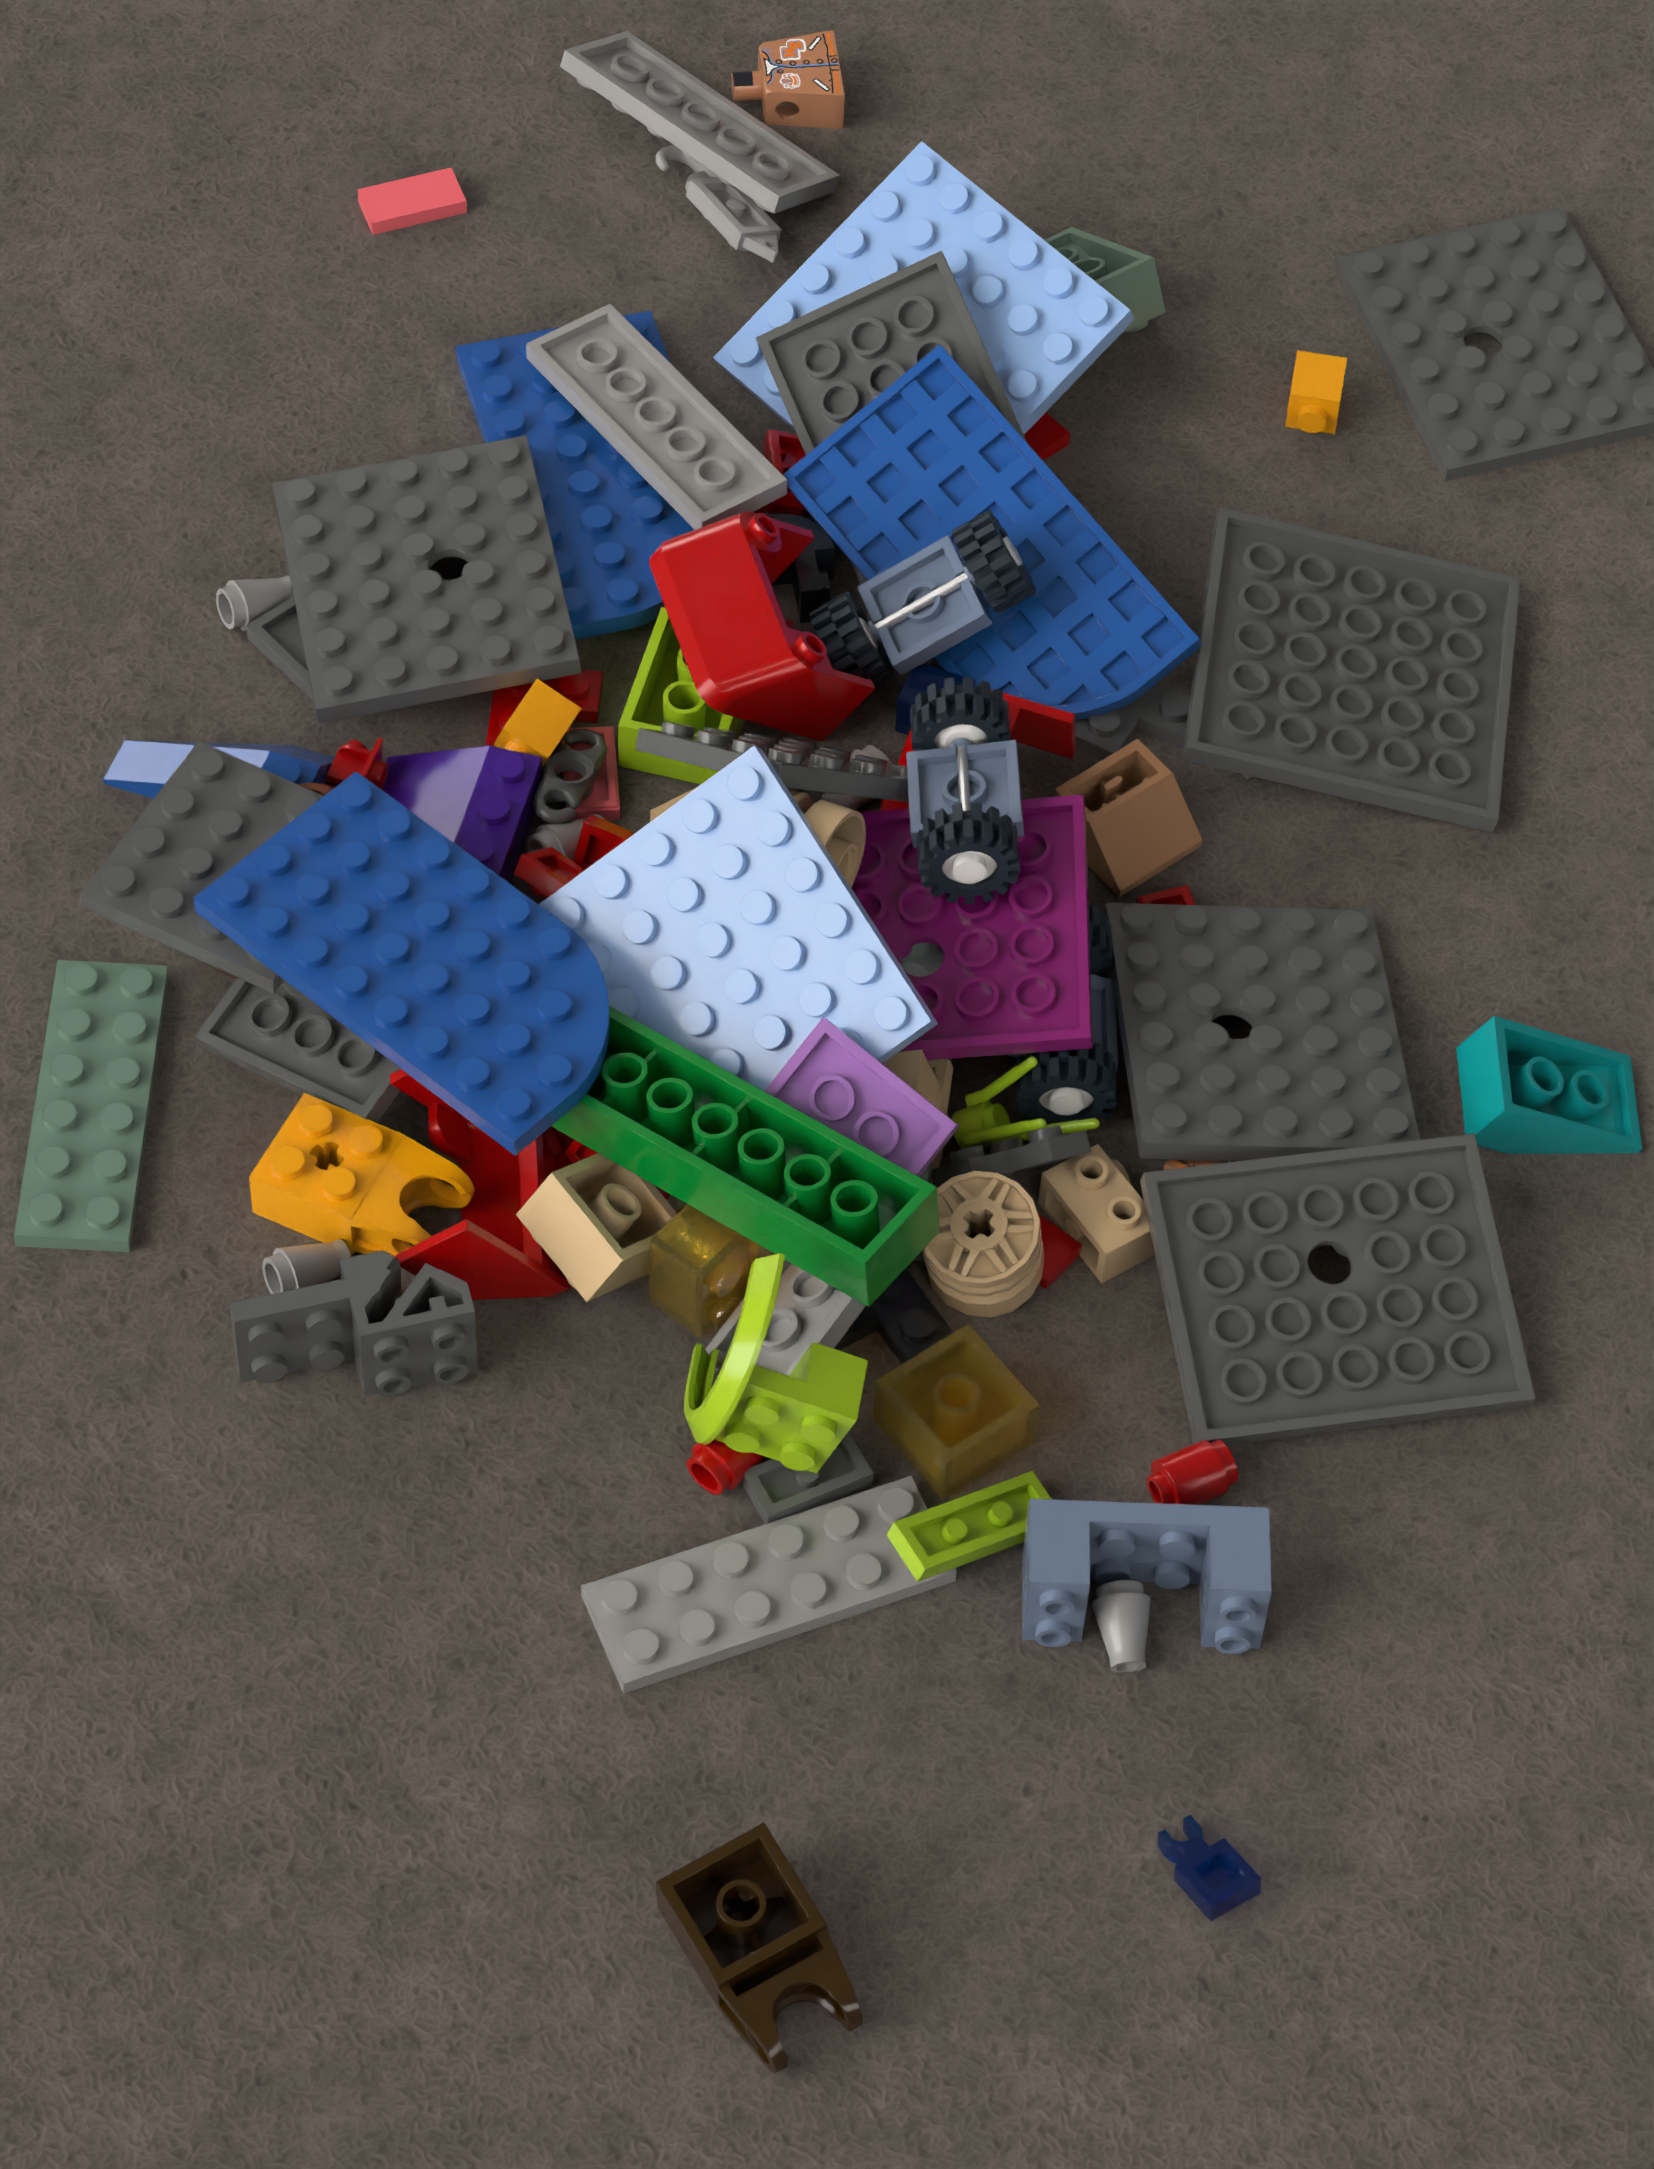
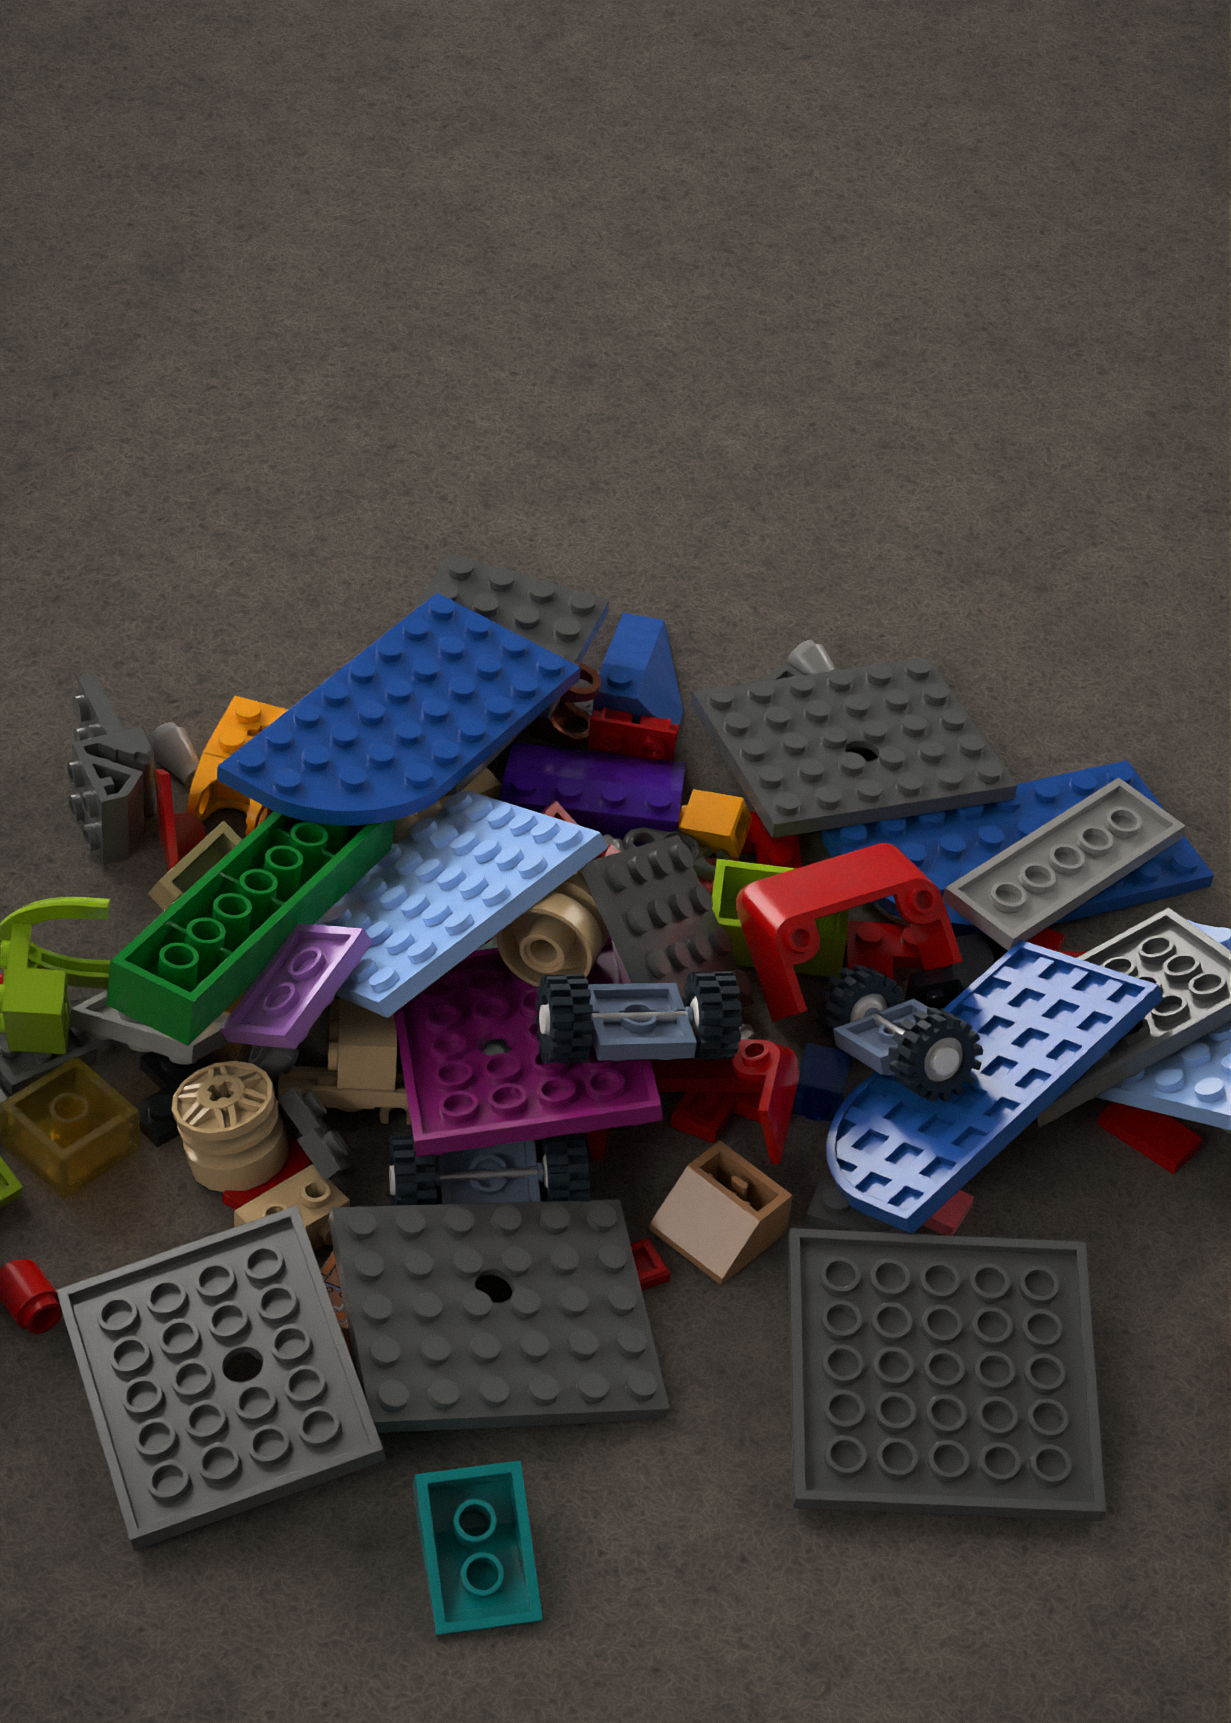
camera: 80 degrees right, 10 degrees down
(92, 1106) = (286, 634): sand green plate -> none
(989, 1123) = (371, 1138): lime plant -> none

